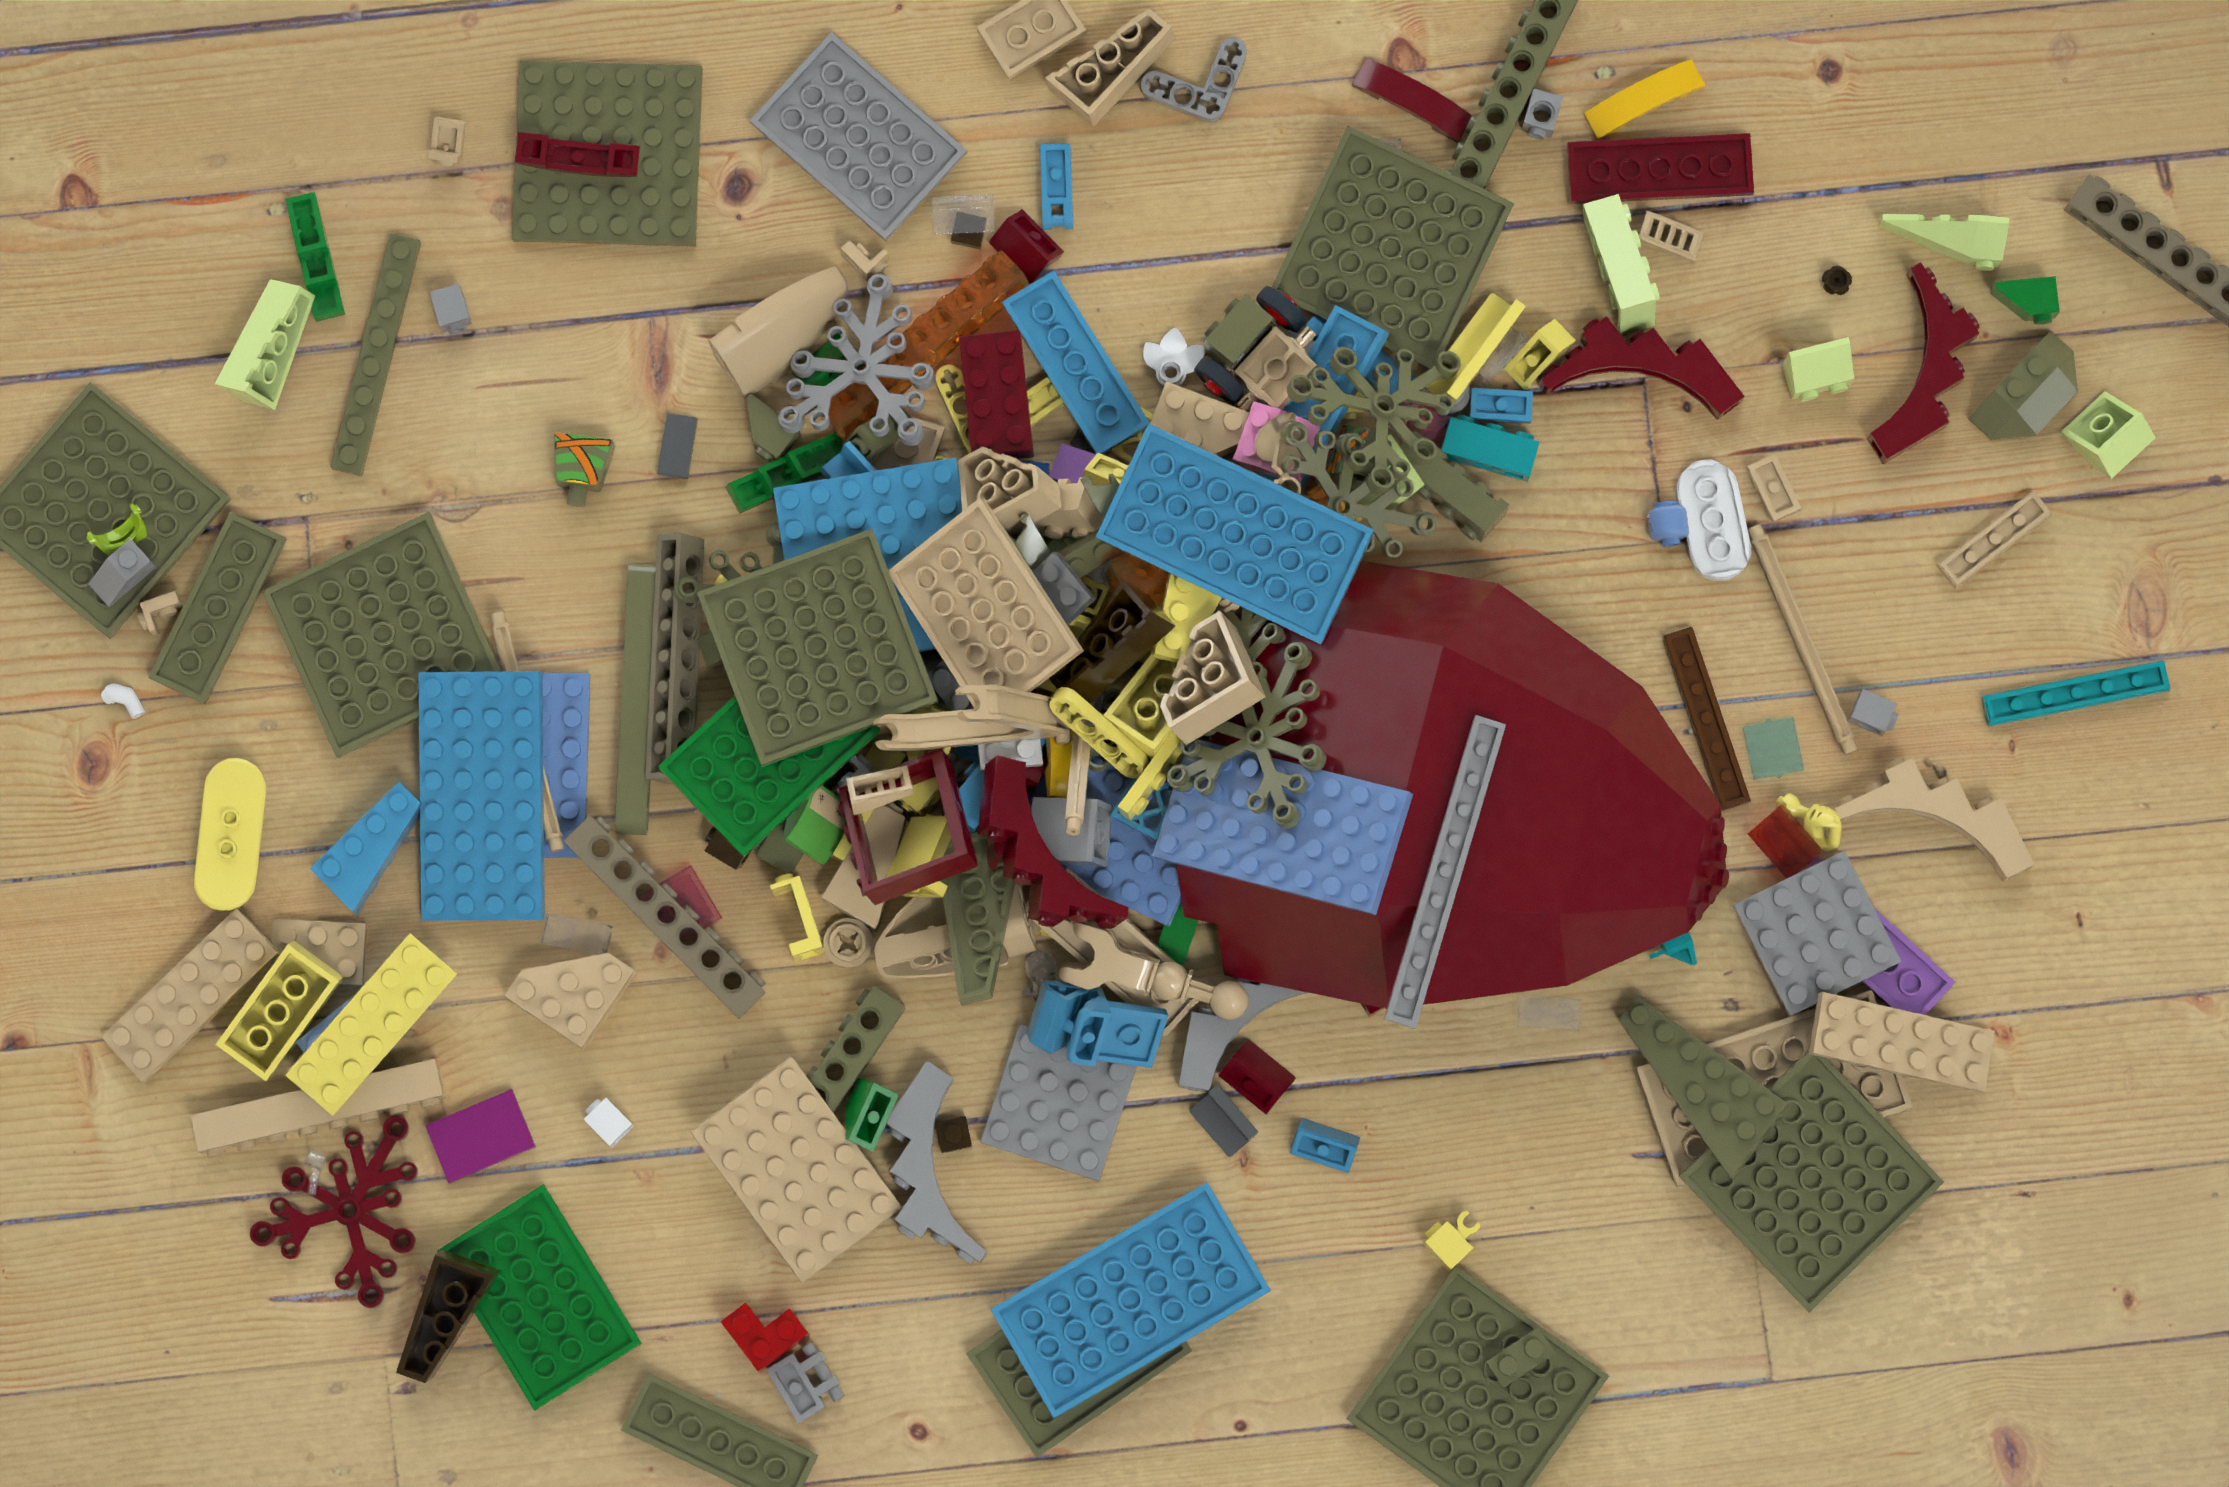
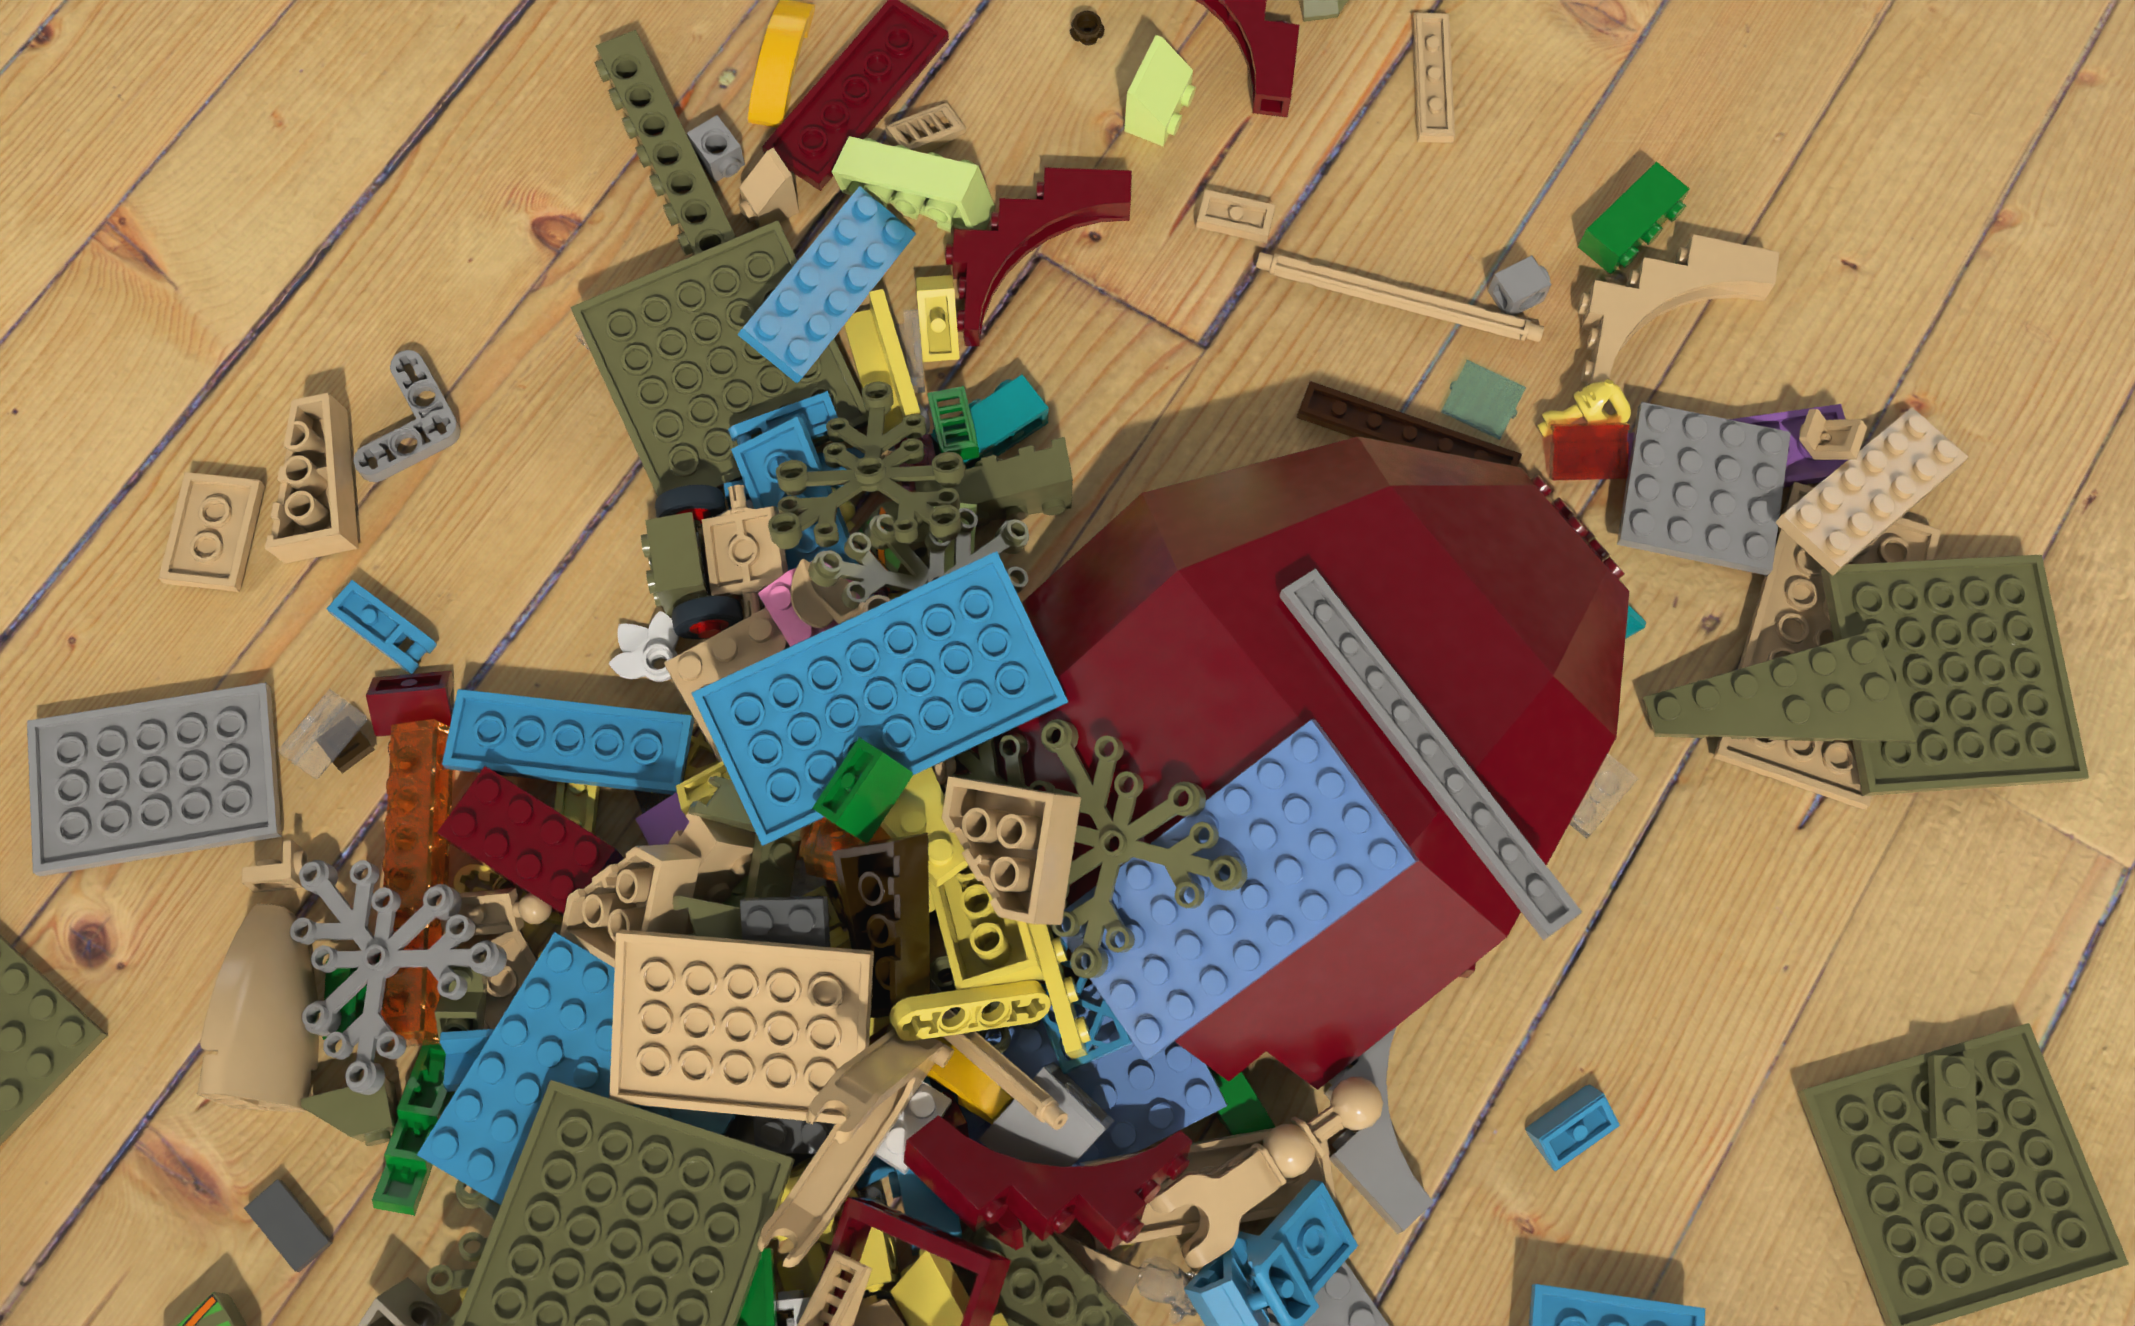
camera: 55 degrees left, 10 degrees down
(943, 410) = (499, 911): none -> tan plate
(1171, 568) = (863, 790): none -> green panel
(1223, 1121) = (1472, 1213): dark grey panel -> none
(1257, 1076) = (1450, 1140): dark red panel -> none
(1401, 332) = (814, 410): none -> dark azure plate
(1413, 98) = (598, 244): dark red slope -> none
(1449, 1243) = (1772, 1078): light yellow brick -> none
(1451, 444) = (965, 448): none -> green slope
(1499, 269) = (827, 285): none -> dark azure plate
(1501, 405) = (966, 372): dark azure plate -> none
(1534, 176) = (768, 192): none -> tan slope
(1668, 523) = (1193, 327): medium blue head -> none
(1716, 520) = (1222, 290): white tile -> none
(1916, 988) = (1831, 438): none -> tan bracket
(1988, 752) = (1634, 219): none -> green brick
(2076, 693) = (1631, 115): teal tile -> none

